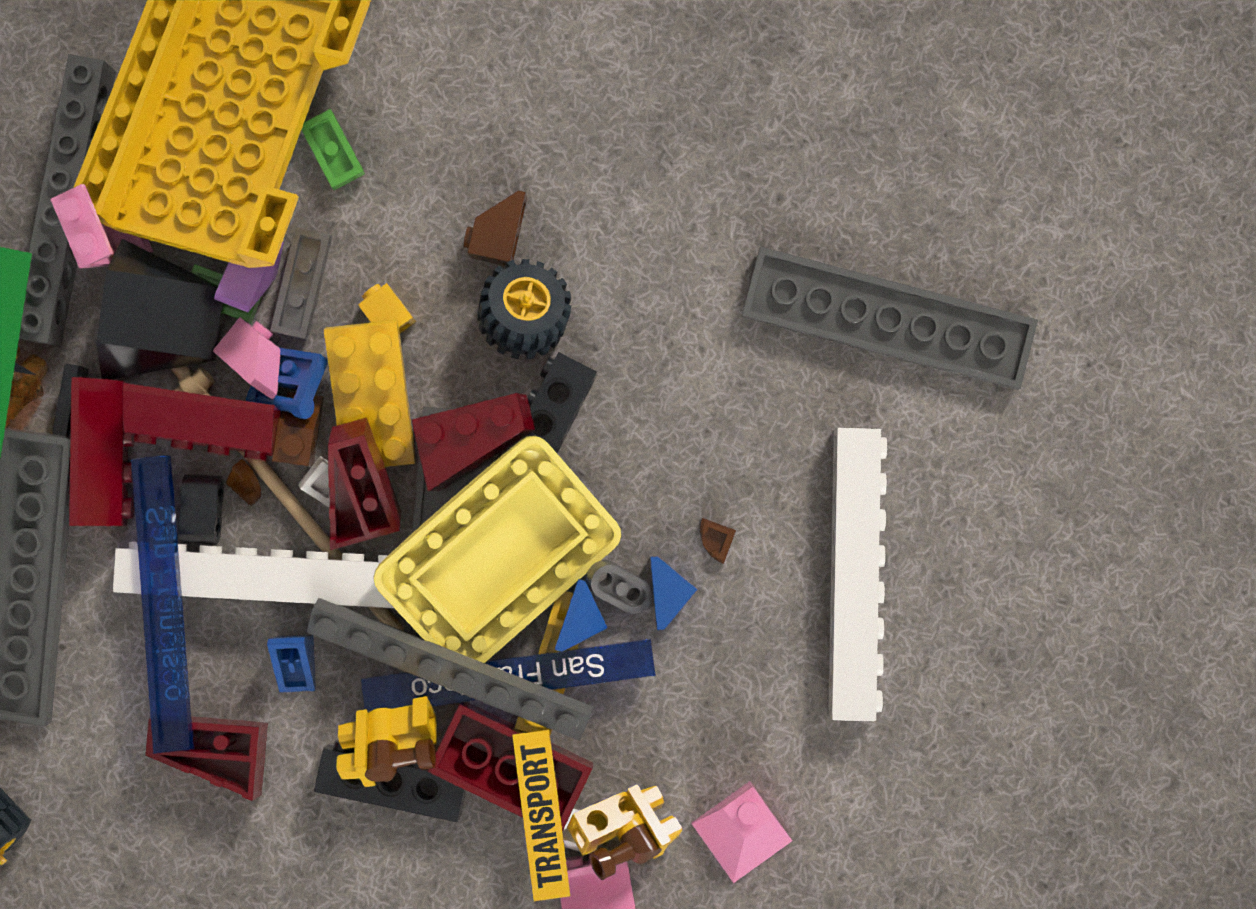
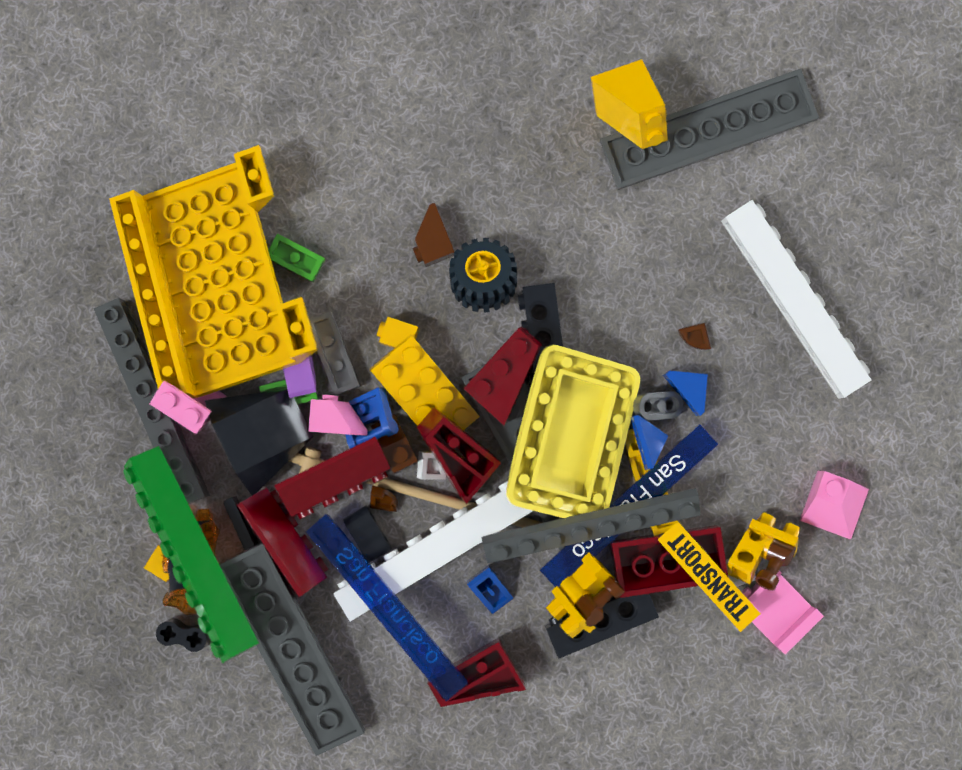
camera: 30 degrees left, 0 degrees up
(817, 229) = (631, 104): none -> yellow slope

